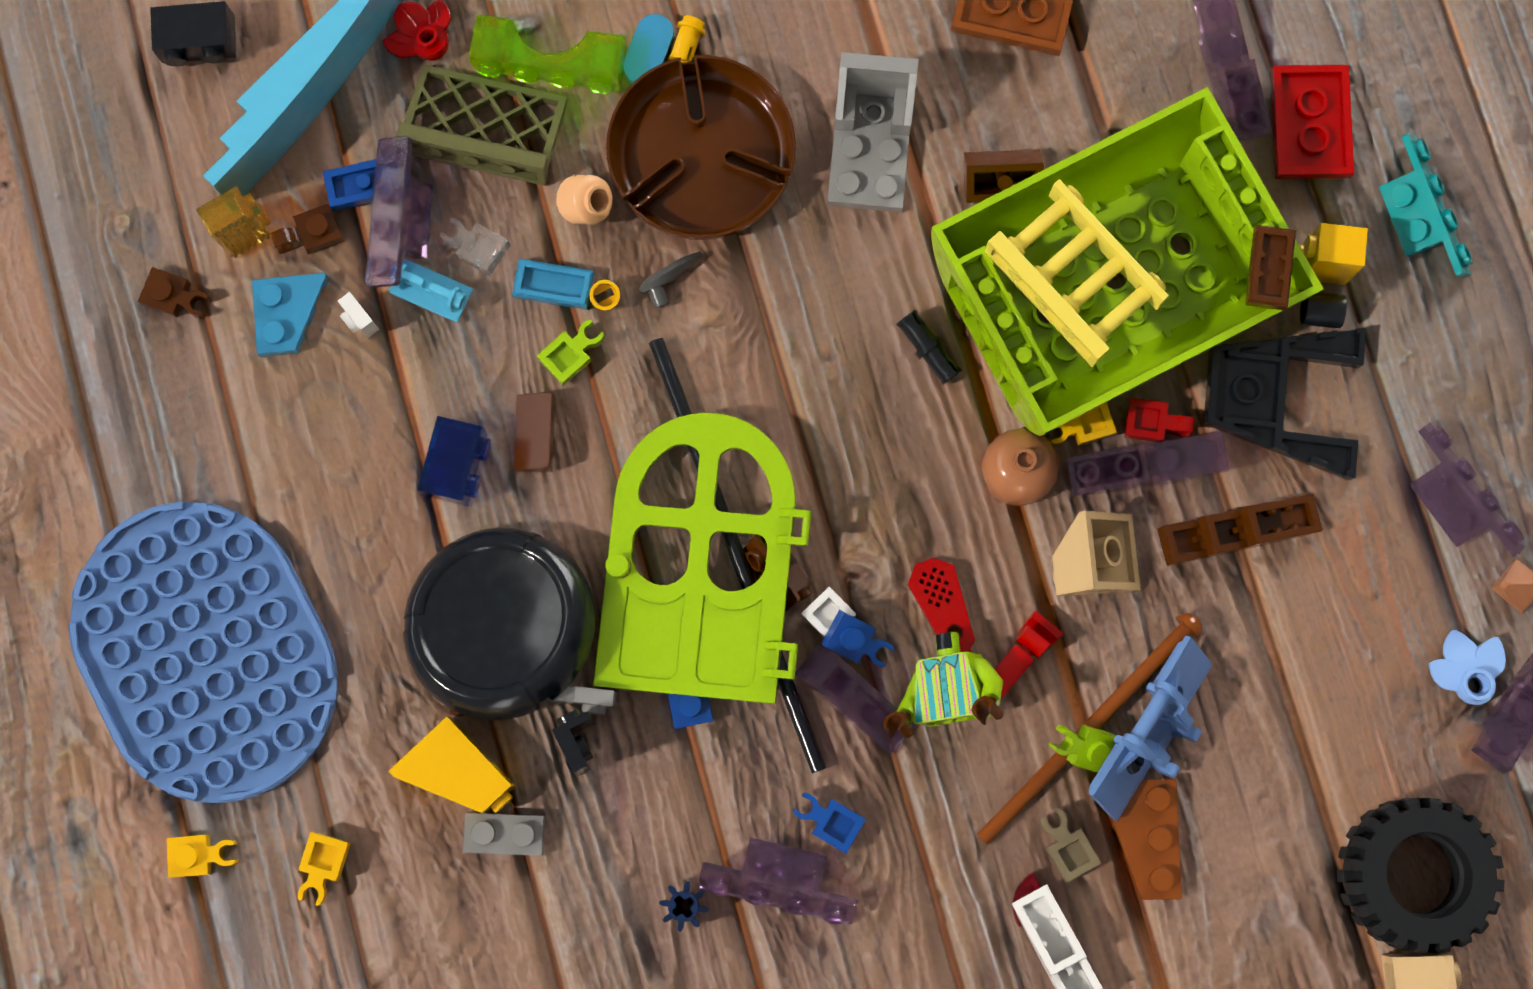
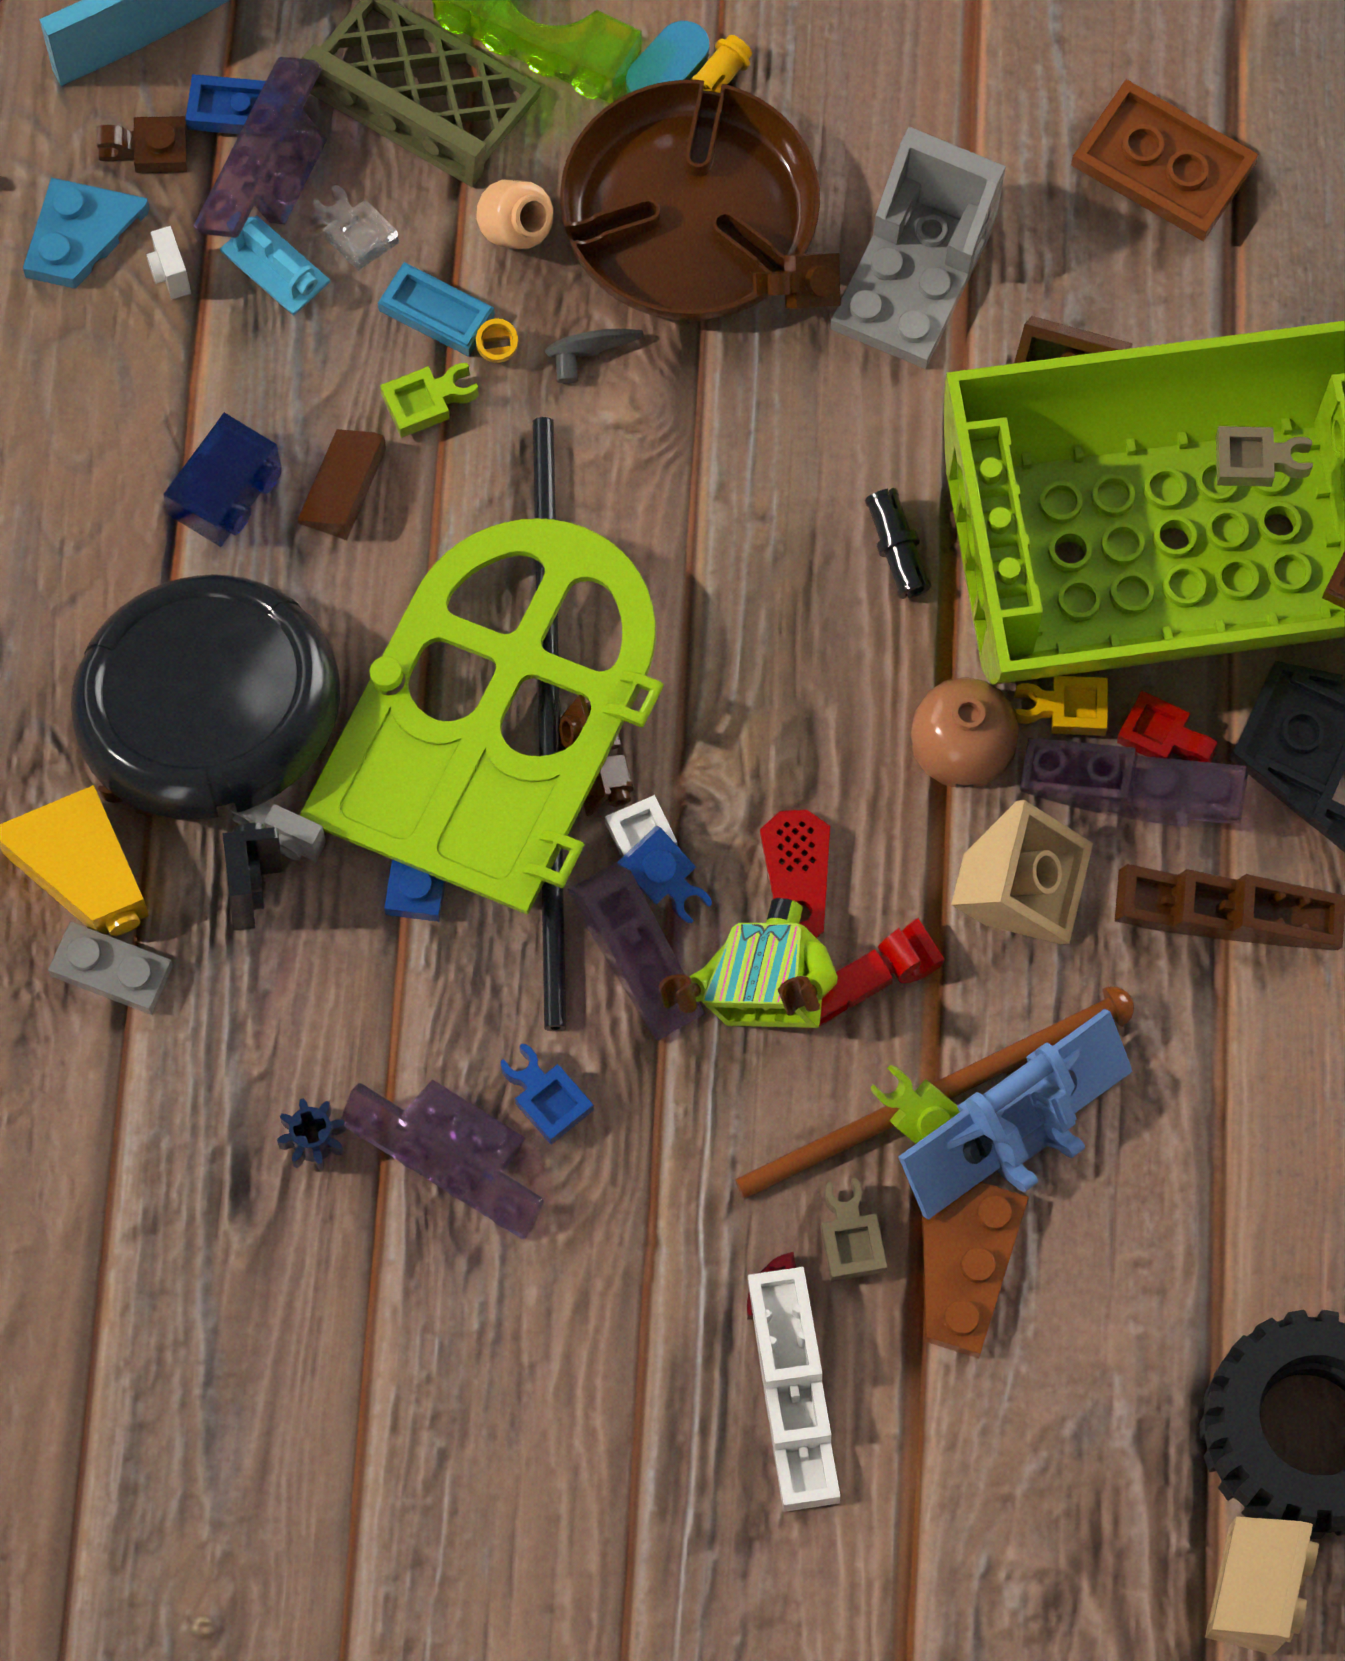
camera: 15 degrees right, 10 degrees down
(235, 221) = (59, 95): clear yellow brick -> none
(802, 181) = (806, 280): none -> reddish brown plate
(1064, 310) = (1079, 524): light yellow fence -> none
(1164, 220) = (1251, 457): none -> dark tan plate

